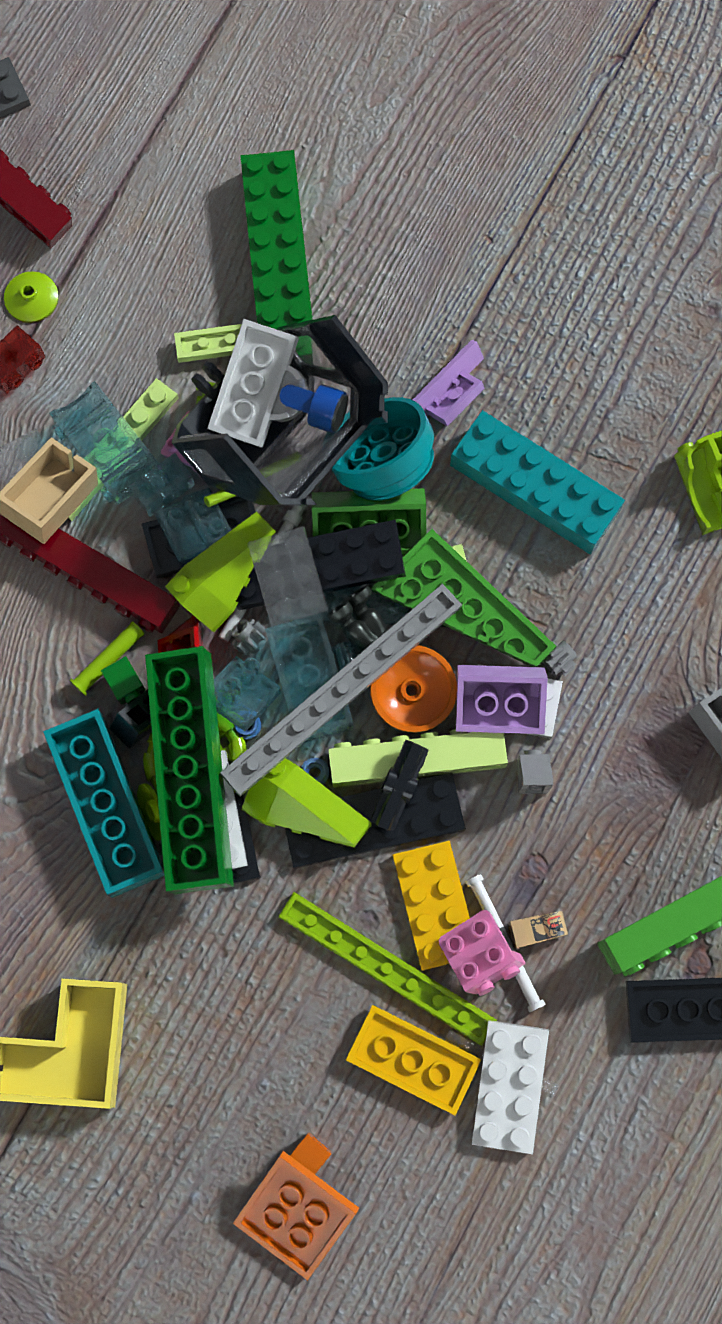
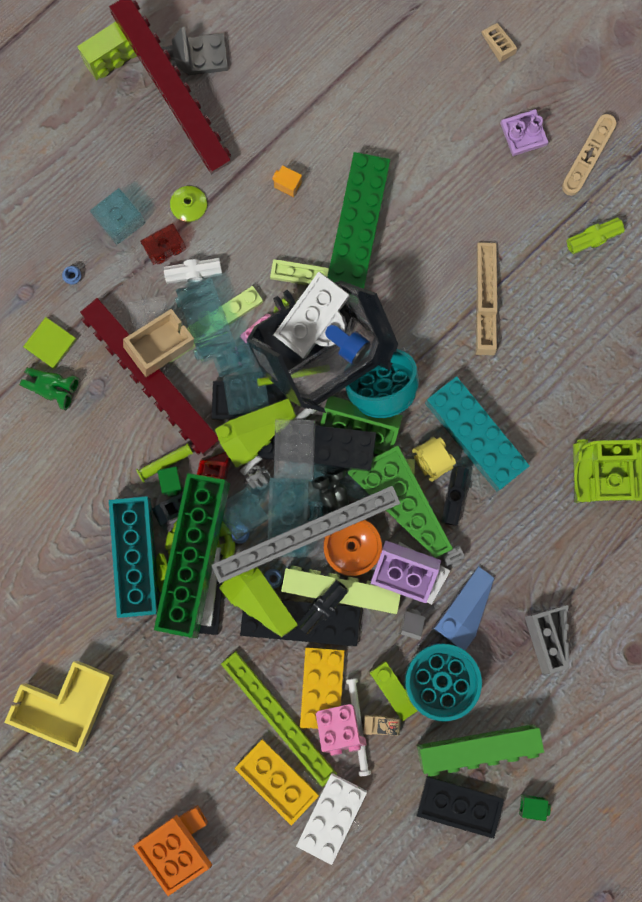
camera: 15 degrees right, 5 degrees up
(65, 383) = (192, 270): none -> white piece
(160, 223) = (287, 180): none -> light orange brick
(453, 386) = (442, 353): lavender bracket -> none
(466, 65) = (524, 132): none -> lavender plate
(487, 532) = (433, 458): none -> light yellow brick
(488, 300) = (486, 299): none -> tan slope
(535, 592) = (456, 483): none -> black piece
(538, 874) = (393, 690): none -> lime slope
(559, 90) = (580, 168): none -> tan piece
(601, 740) = (464, 614): none -> medium blue wedge
(608, 170) = (595, 235): none -> lime piece
(637, 815) = (461, 701): none -> teal wheel

